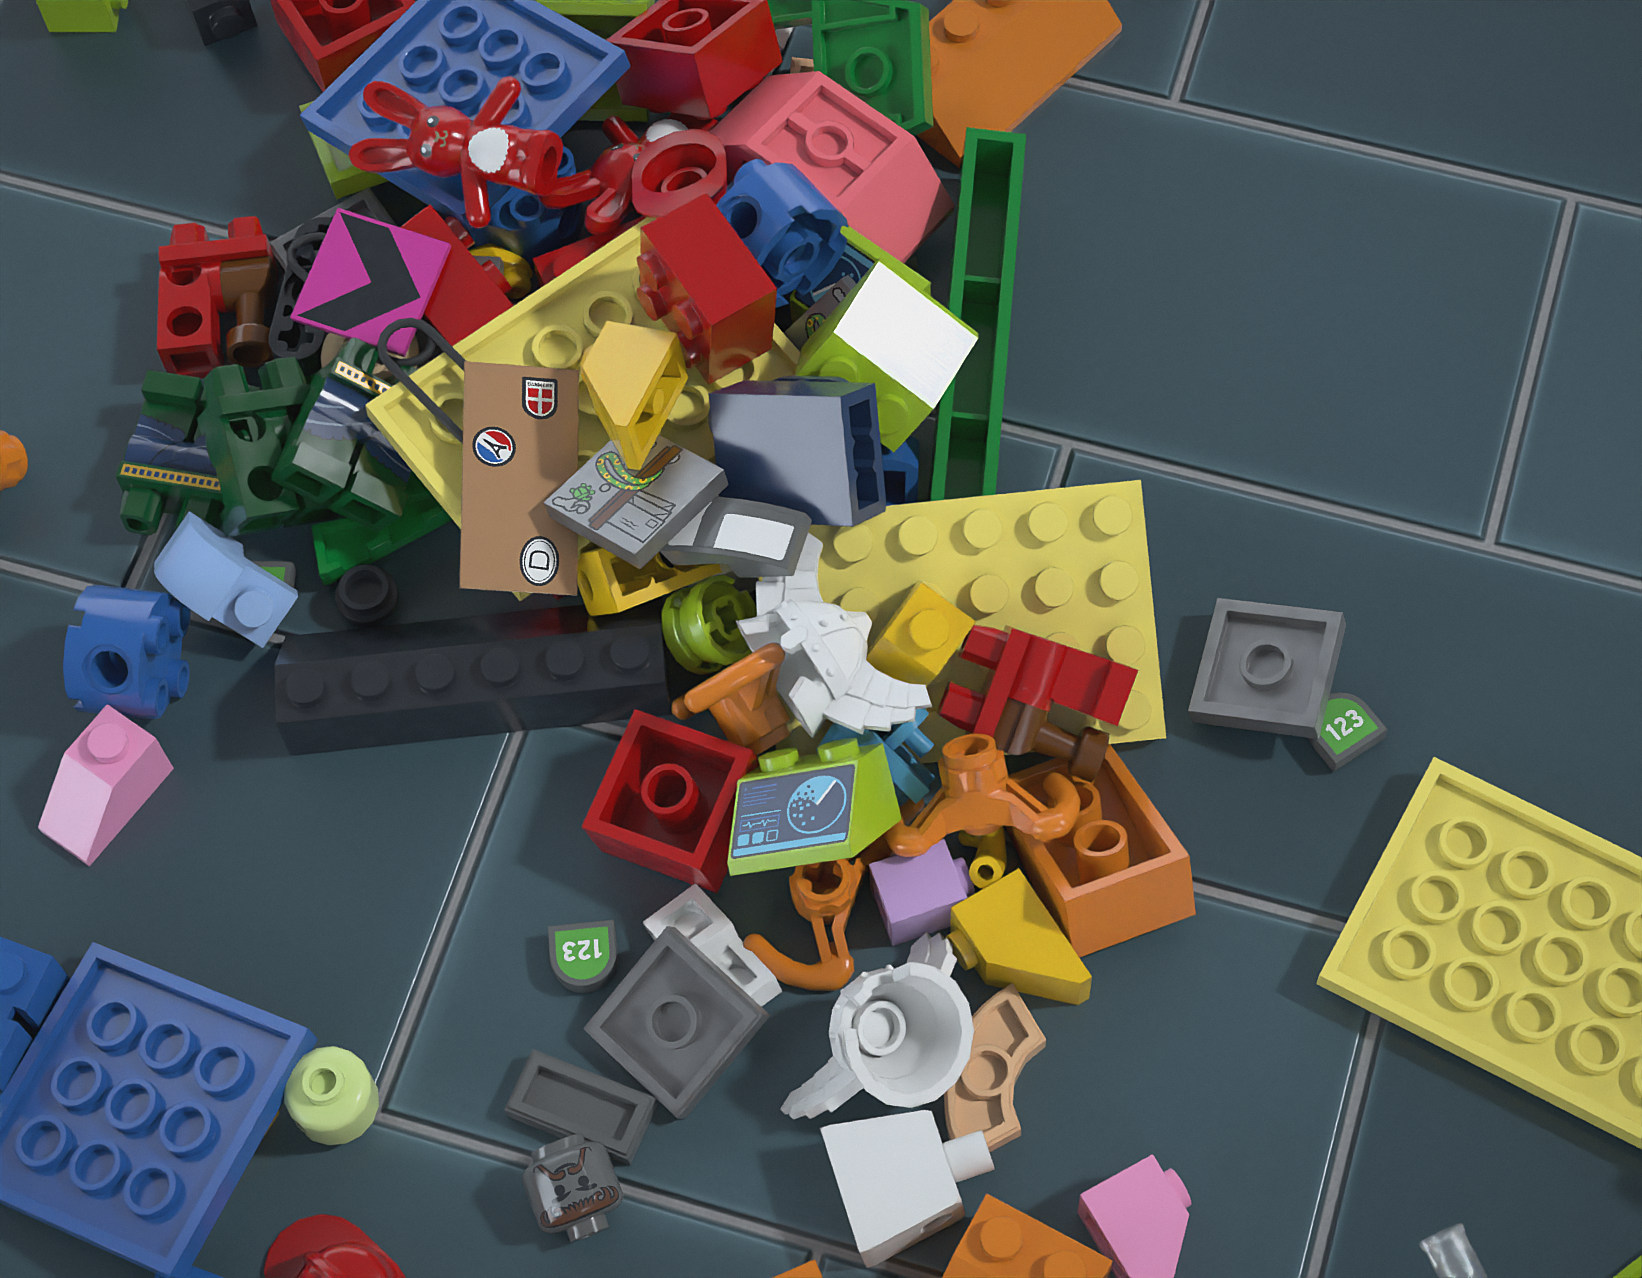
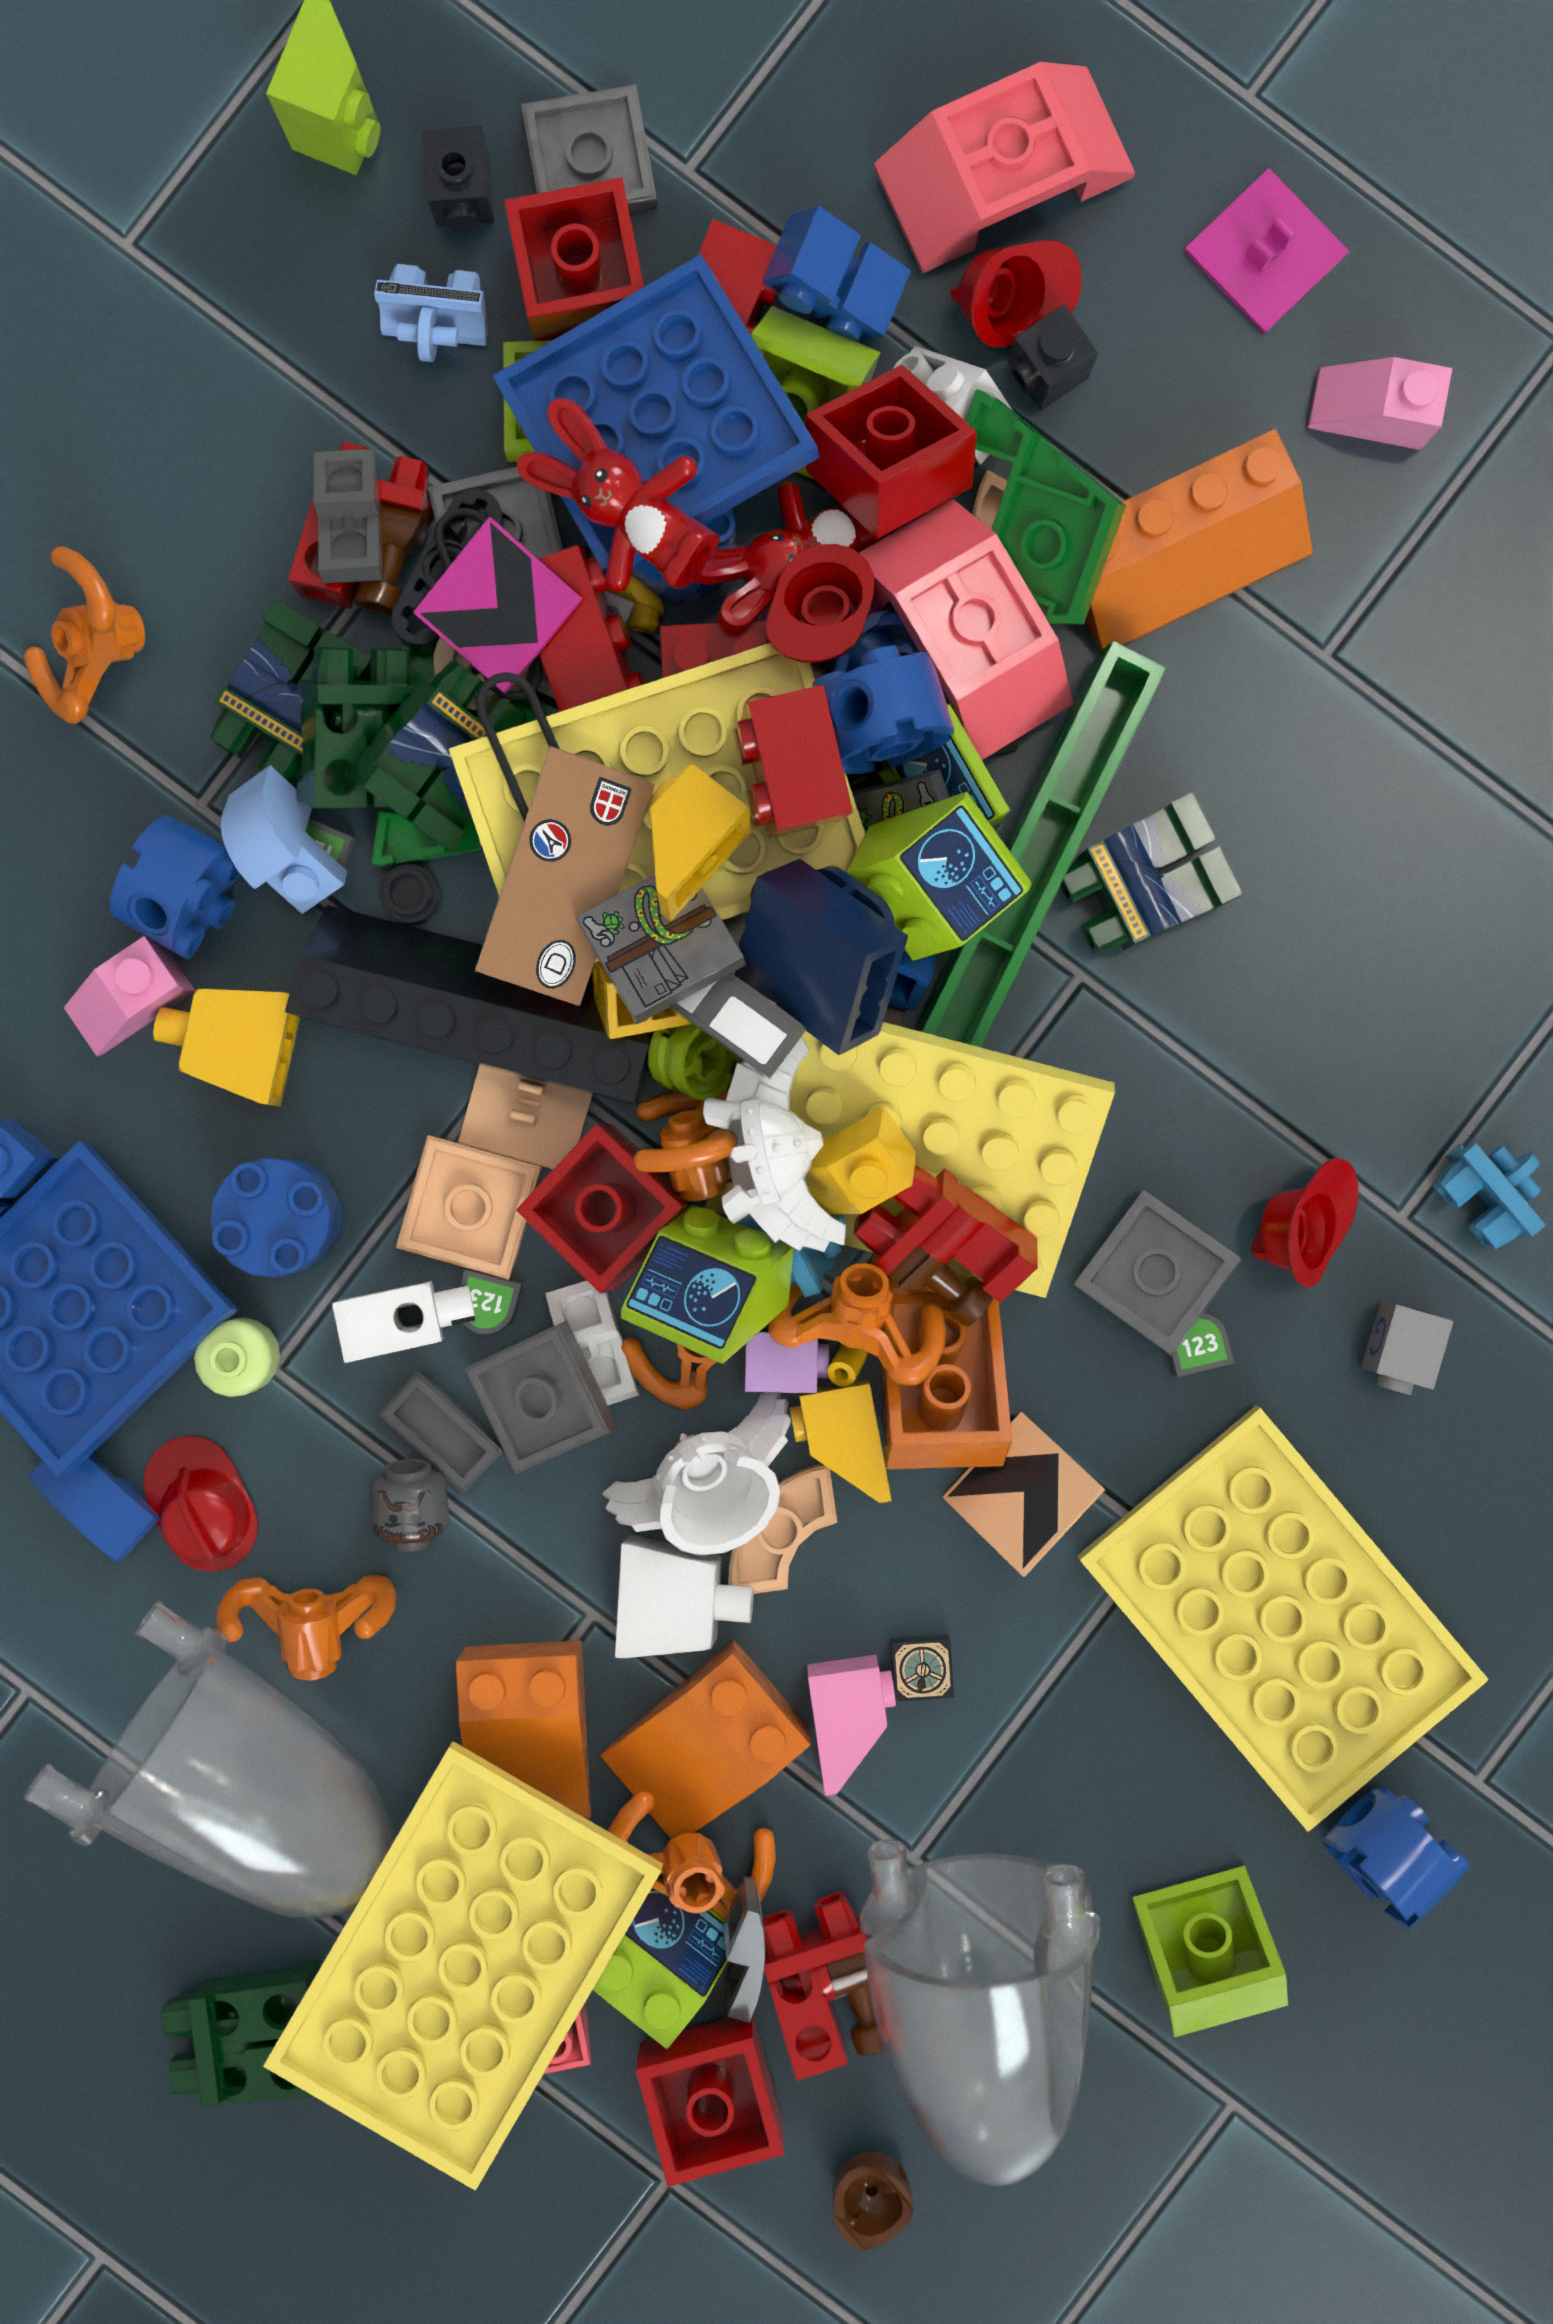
camera: 15 degrees right, 25 degrees up
(199, 273) = (348, 516): none -> dark grey slope
(223, 102) = (432, 313): none -> light blue hips
(230, 787) = (234, 1040): none -> yellow torso
(329, 938) = (276, 1217): none -> blue brick
(491, 989) = (371, 1323): none -> white torso
(529, 869) = (467, 1207): none -> light nougat tile
(553, 765) = (523, 1117): none -> light nougat piece
(1096, 325) = (1129, 880): none -> hips
(1205, 1160) = (922, 1668): none -> tile
(1236, 932) = (1028, 1499): none -> piece
(1395, 567) = (1309, 1223): none -> red piece
(1551, 648) = (1406, 1347): none -> light grey brick
(1565, 474) = (1508, 1211): none -> dark azure hips

